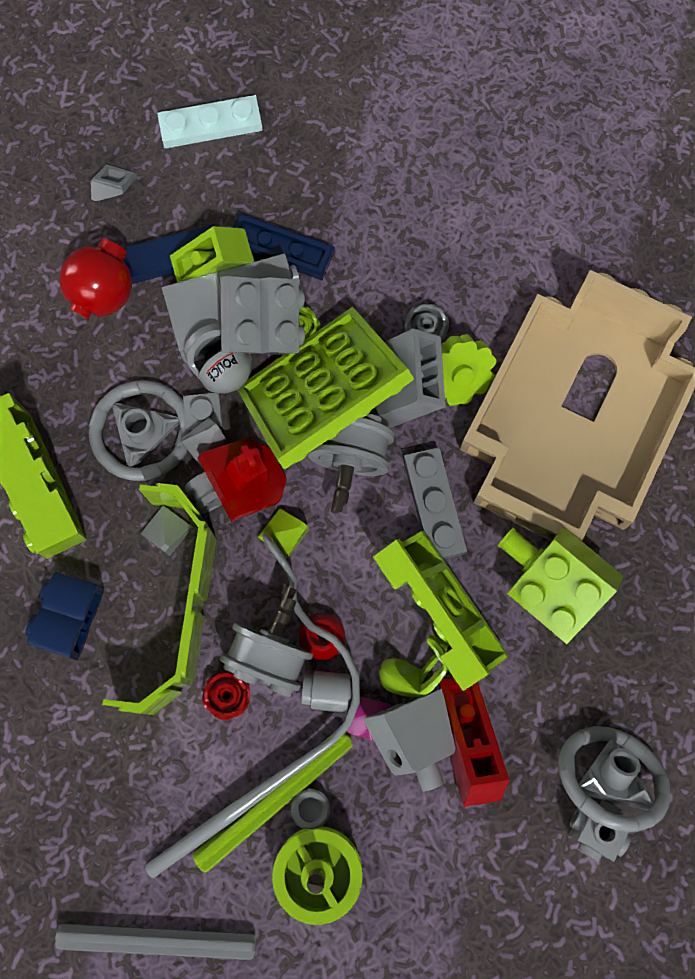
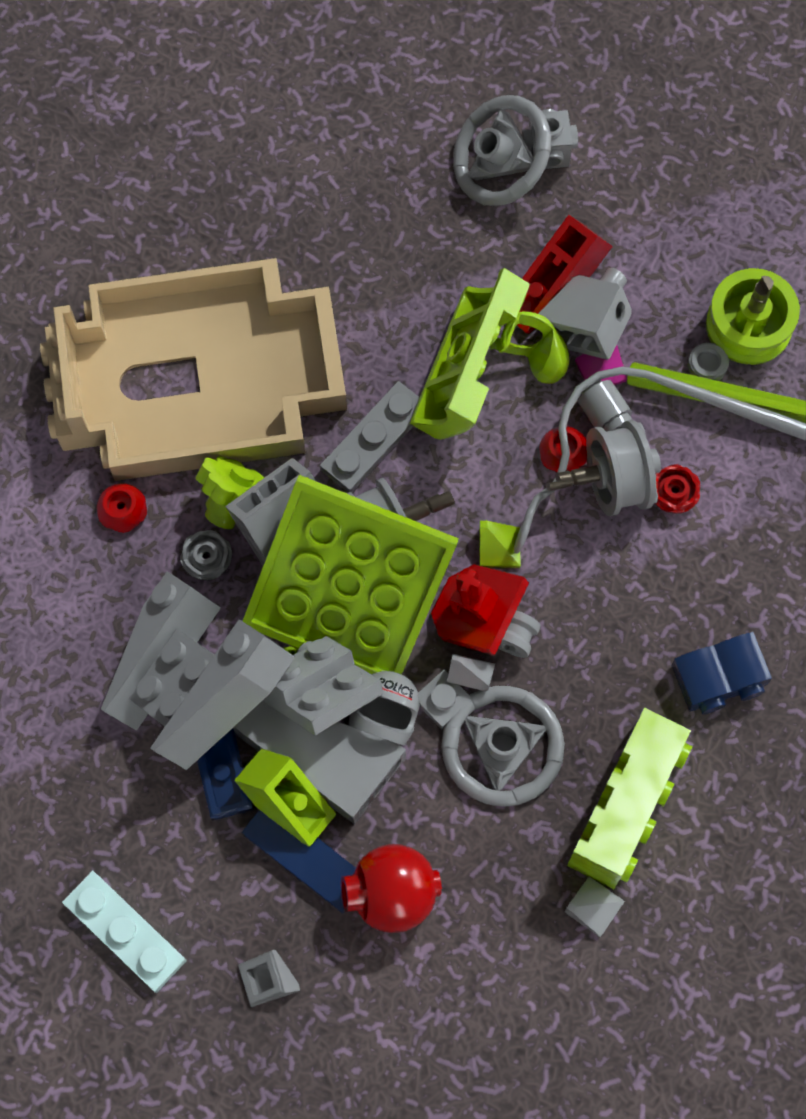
camera: 125 degrees left, 5 degrees down
(166, 530) = (577, 649): light grey slope -> none
(193, 623) = (712, 528): lime windscreen -> none
(342, 239) = (182, 682): none -> light grey wedge
(502, 305) = (121, 519): none -> red plate
(562, 582) = (372, 280): lime brick -> none

